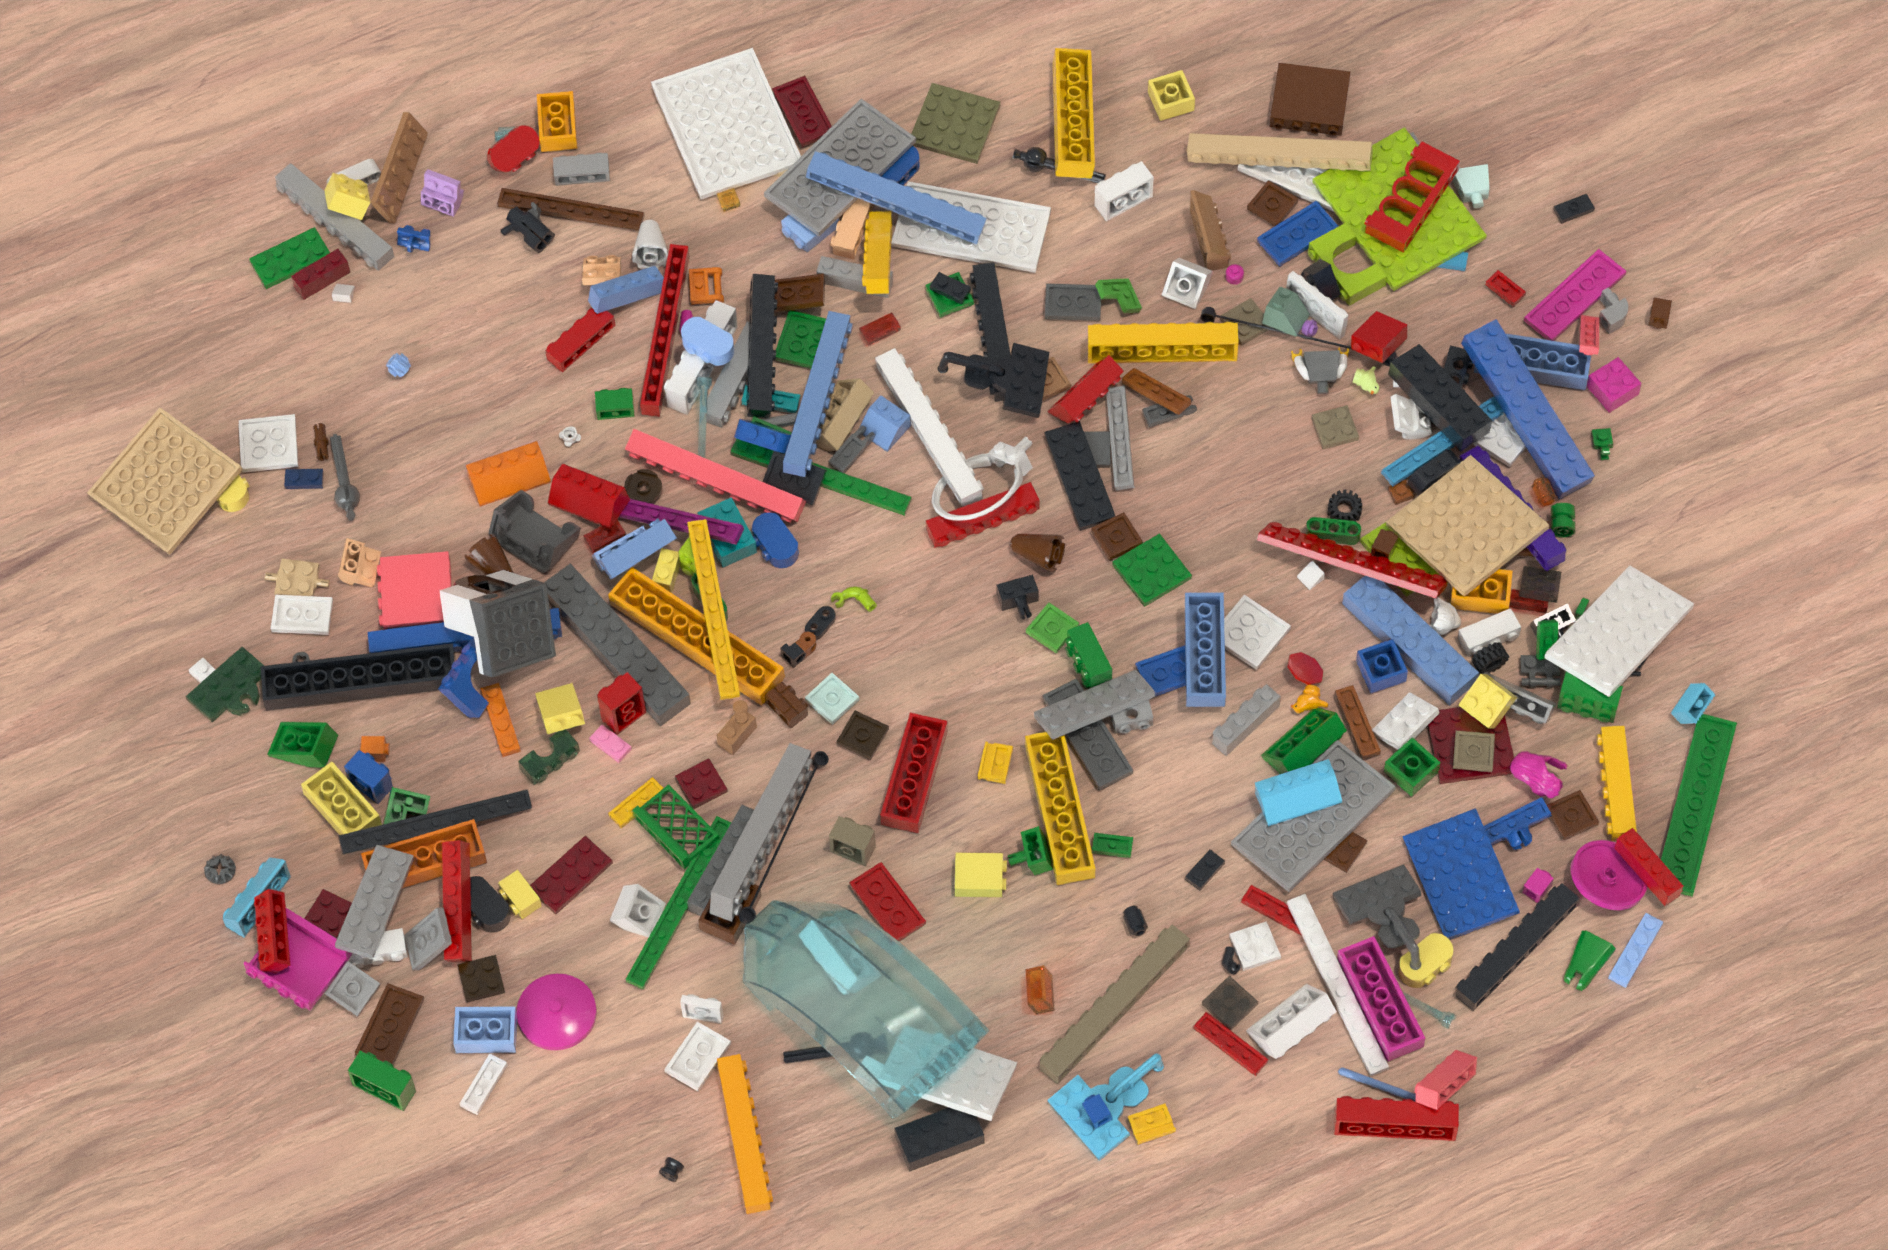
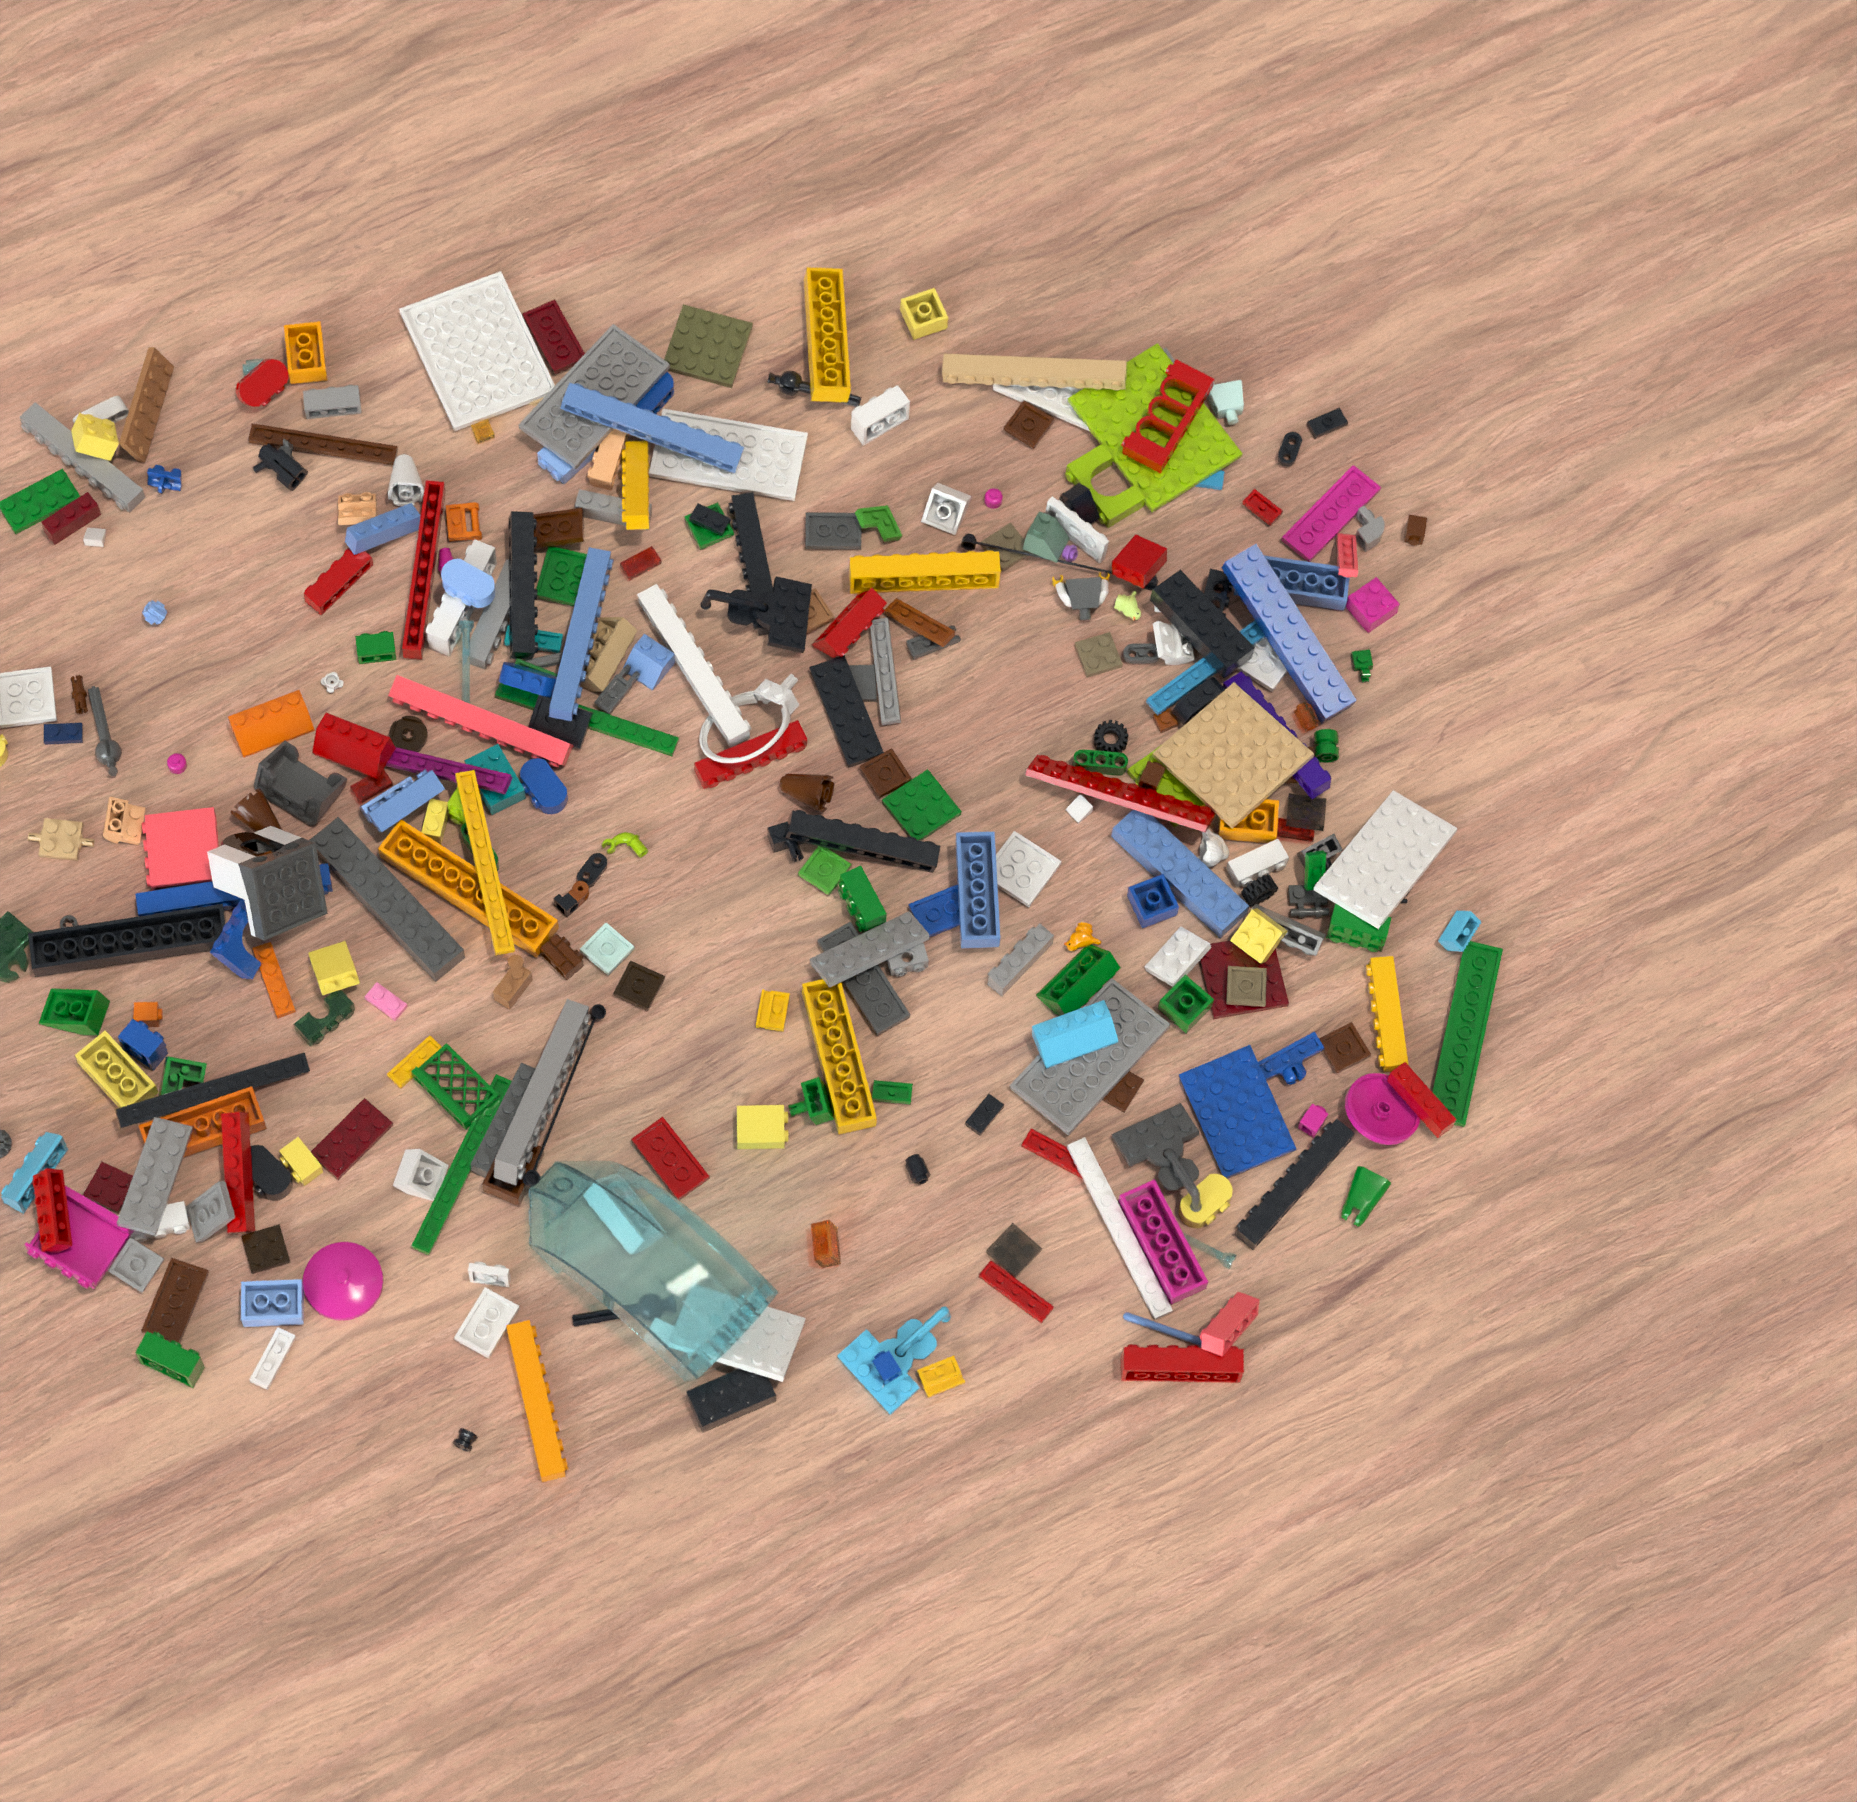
camera: 10 degrees left, 5 degrees up
(302, 614) = (67, 876): white plate -> none
(414, 510) = (177, 763): none -> dark pink piece
(441, 193) = (190, 430): lavender brick -> none
(621, 703) = (395, 961): red brick -> none
(701, 783) = (479, 1040): dark red plate -> none
(852, 840) = (633, 1096): dark tan brick -> none
(914, 773) = (692, 1024): red brick -> none
(1091, 600) = (862, 841): none -> black brick
(1114, 1004) = (900, 1255): dark tan brick -> none
(1208, 231) = (966, 455): medium nougat slope -> none
(1228, 962) = (1010, 1208): black arm -> none
(1254, 946) = (1036, 1191): white plate -> none
(1292, 1020) = (1075, 1266): white slope -> none
(1296, 232) = (1053, 454): blue plate -> none
(1305, 668) = (1077, 905): red piece -> none
(1310, 99) = (1062, 315): reddish brown panel -> none
(1357, 722) = (1130, 958): dark orange plate -> none
(1378, 427) = (1141, 653): none -> dark grey plate
(1533, 771) = (1306, 1006): dark pink hair -> none
(1535, 234) = (1289, 450): none -> black plate
(1582, 607) = (1347, 837): green tile -> none
(1635, 950) = (1410, 1183): light blue plate -> none

